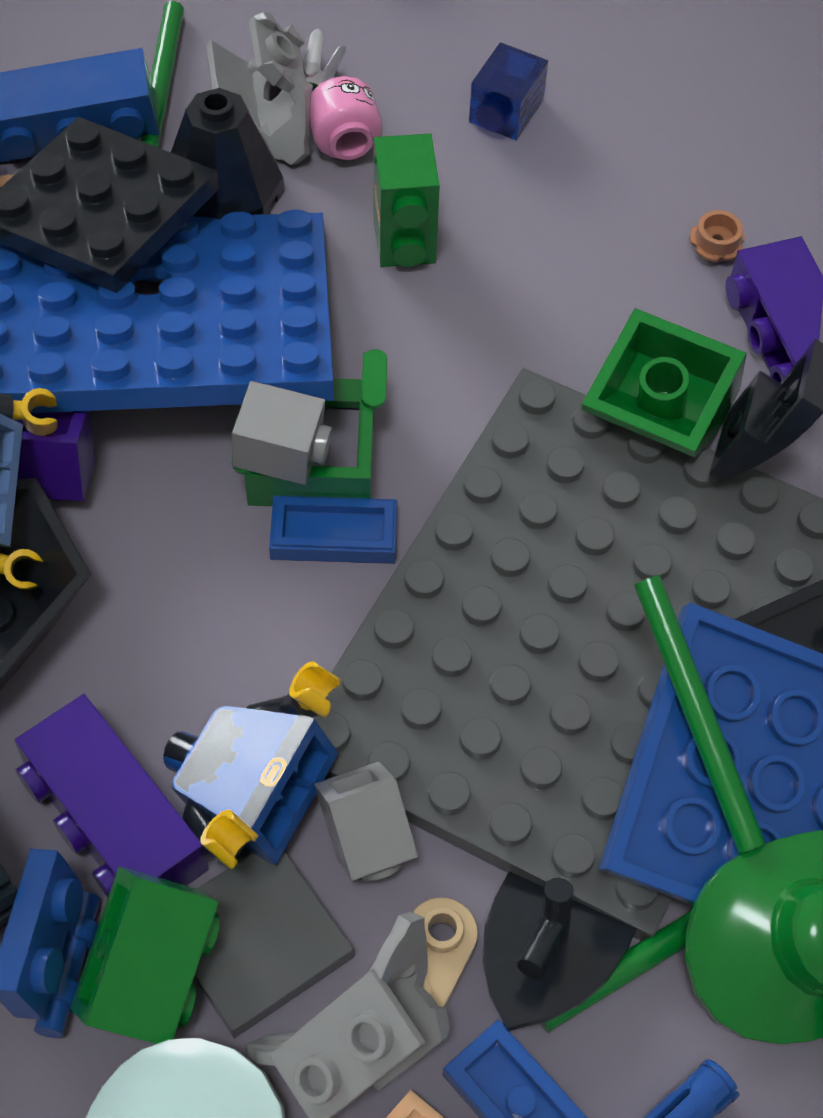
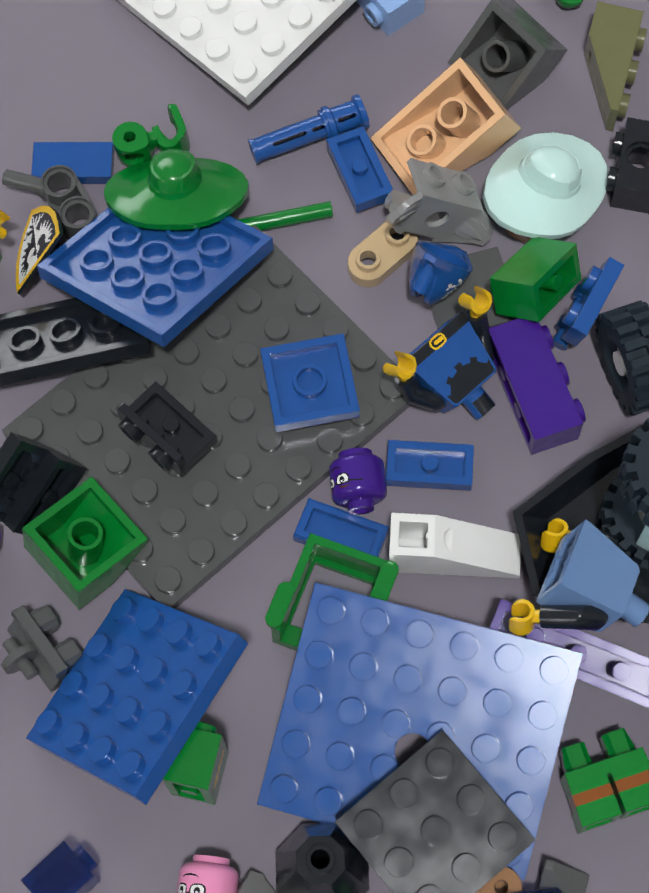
camera: 155 degrees left, 10 degrees up
(175, 529) = (452, 547): none -> white slope
(237, 643) = (430, 465): none -> blue plate
(280, 433) = (362, 561): light grey brick -> none
(310, 920) = (437, 270): none -> blue hat
(332, 581) = (358, 480): none -> dark purple head
(367, 822) = (390, 321): light grey brick -> none
(452, 676) = (310, 382): none -> blue plate
(506, 236) = (137, 694): none -> blue plate
(547, 950) = (316, 234): black shield -> none
(627, 537) = (166, 428): none -> black bracket
(659, 274) = (32, 651): none -> dark grey hips
(699, 714) = (186, 284): green bar -> none

